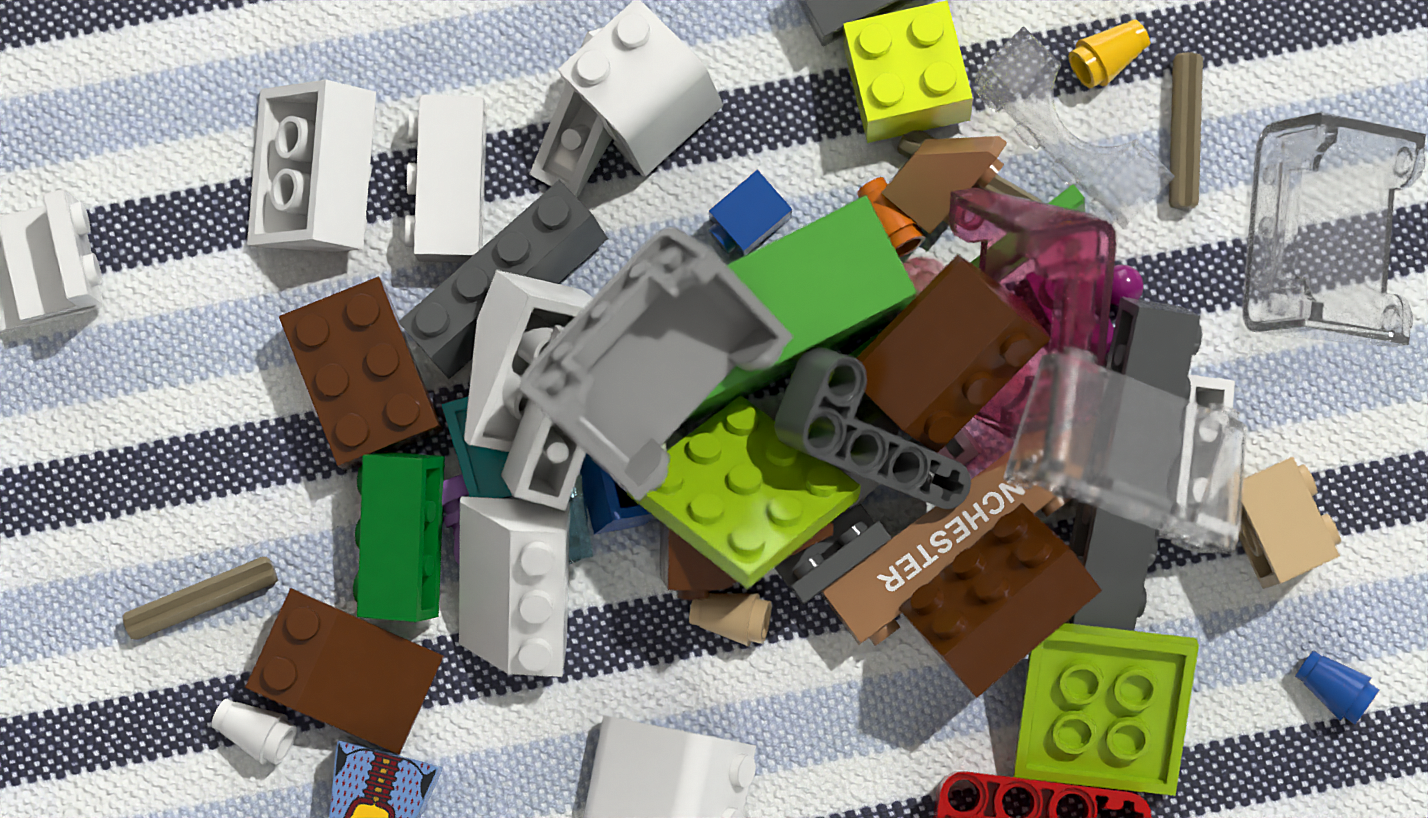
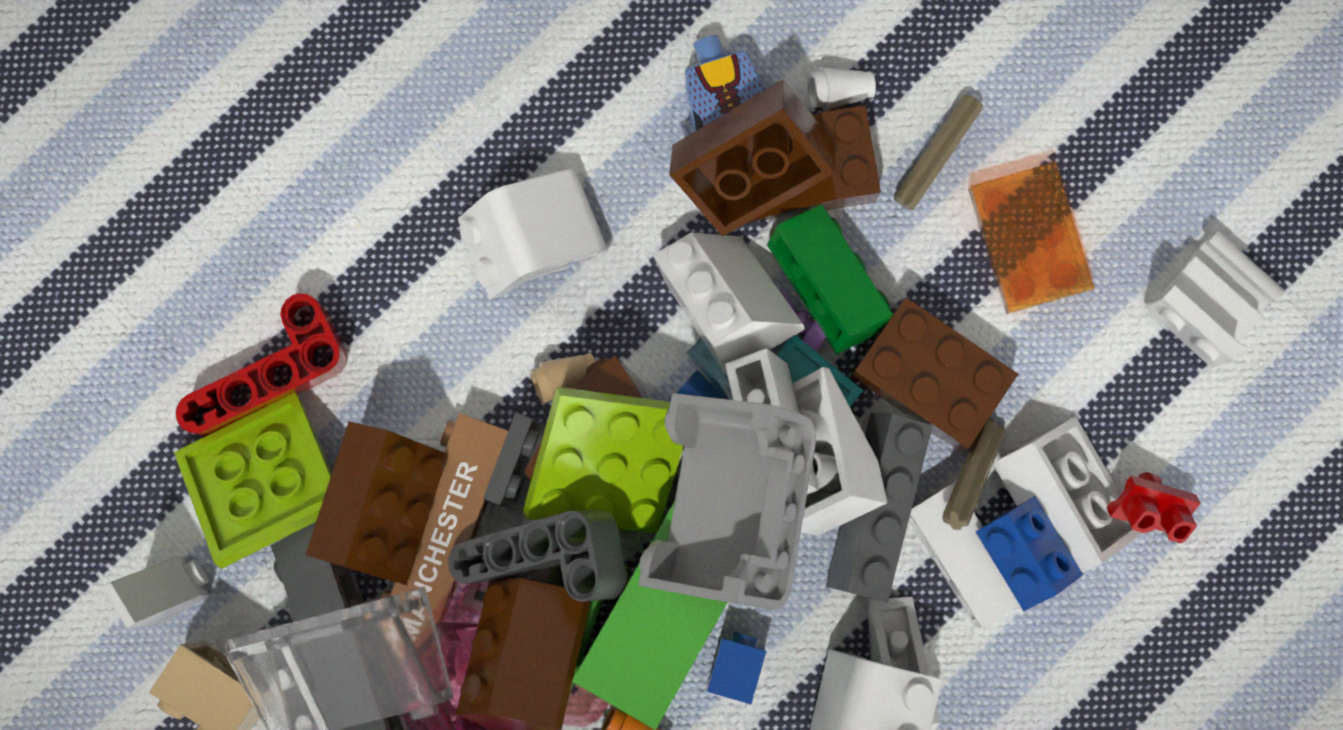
camera: 145 degrees right, 0 degrees up
(168, 448) = (1031, 238): none -> clear orange plate
(236, 107) = (1151, 506): none -> red hips
(389, 136) = (1029, 553): none -> blue brick
(391, 246) = (973, 475): none -> dark tan axle
(397, 703) = (752, 158): none -> reddish brown brick
(1272, 655) = (158, 592): none -> white slope
(1337, 686) = (92, 604): blue cone -> none

